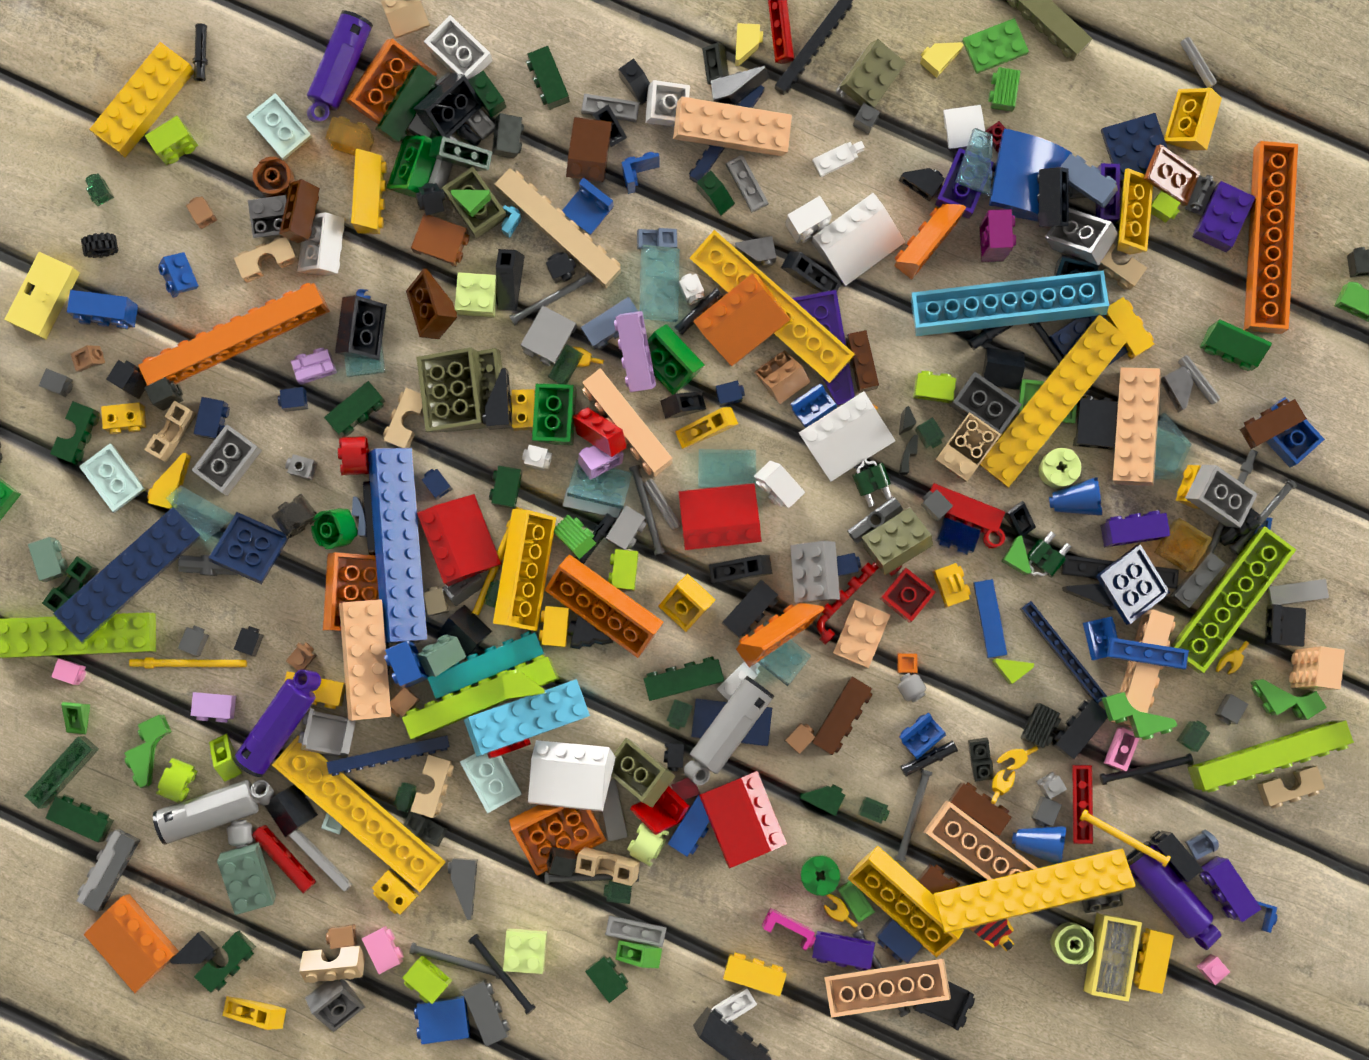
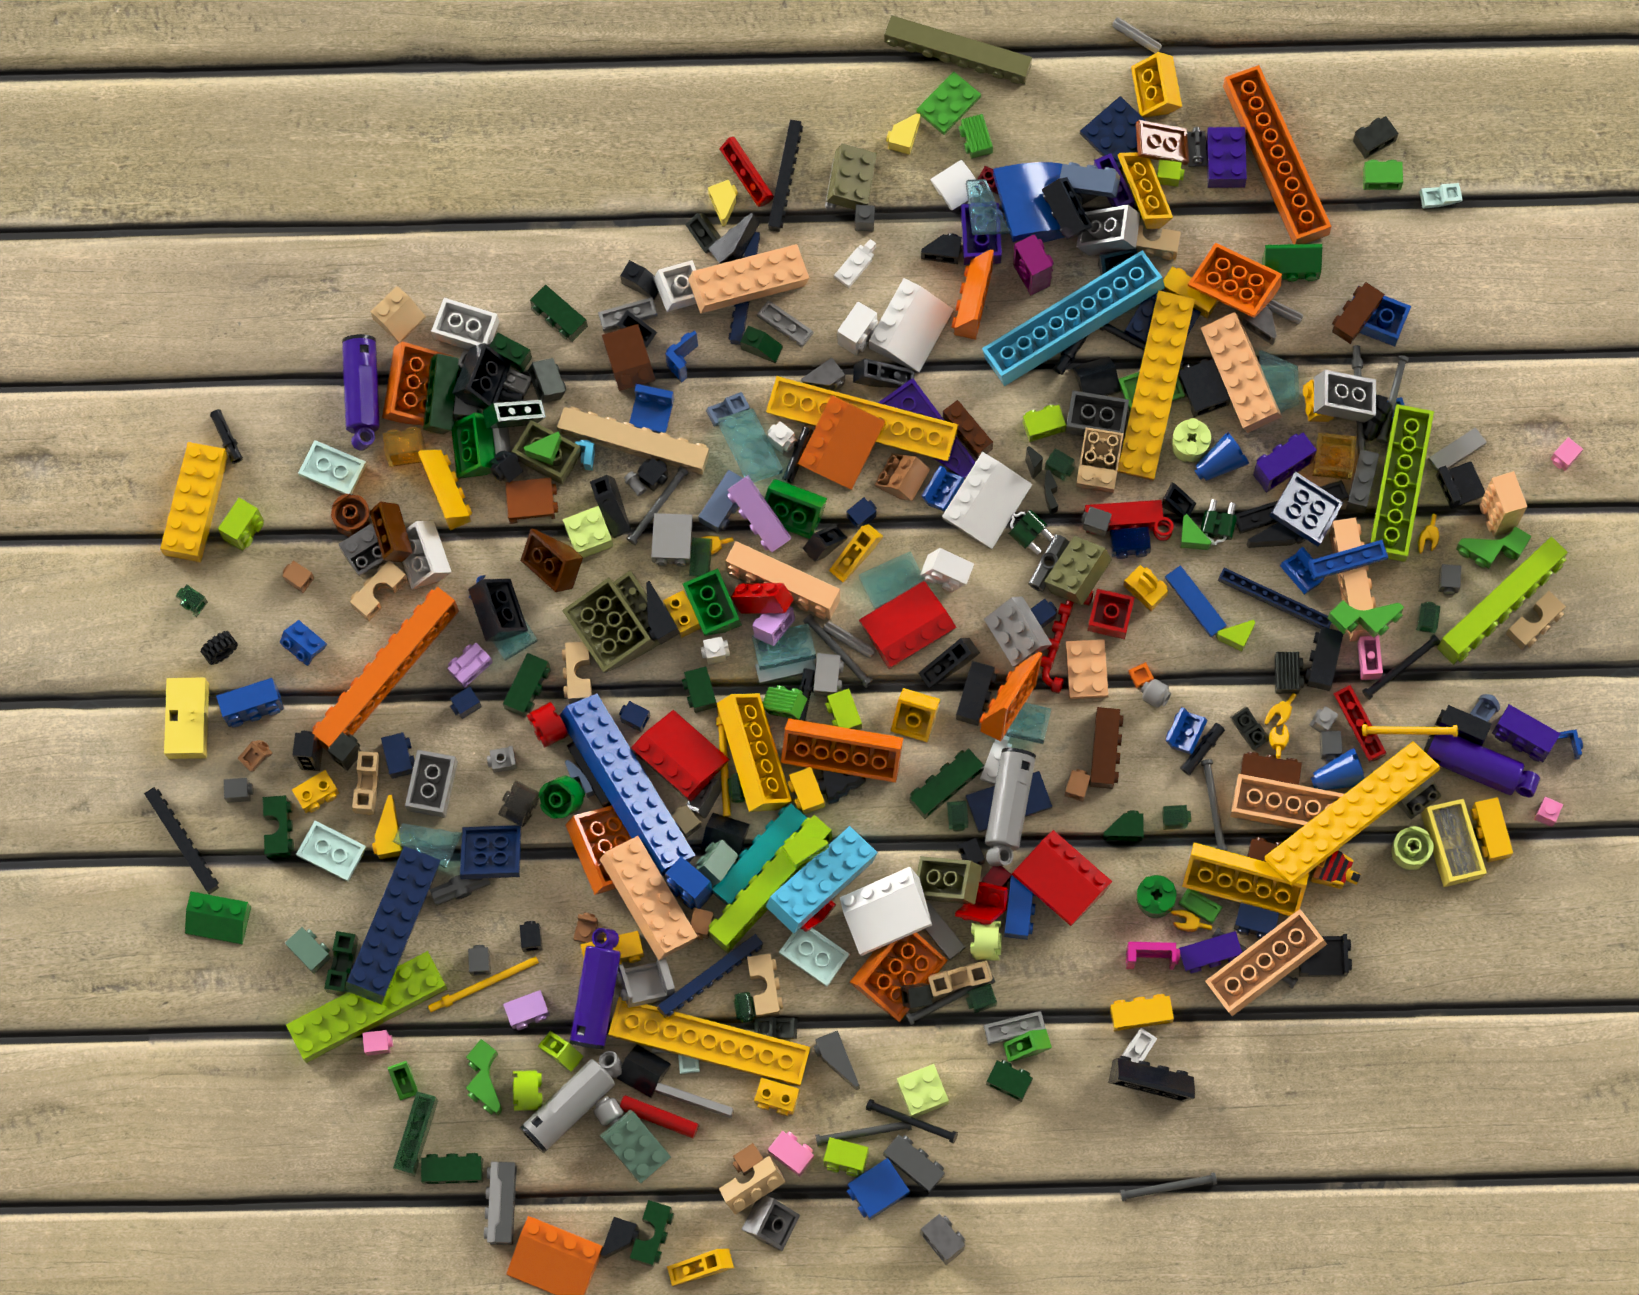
camera: 20 degrees left, 10 degrees down
(541, 269) = (632, 479): none -> light grey pin
(1175, 339) = (1236, 280): none -> orange slope

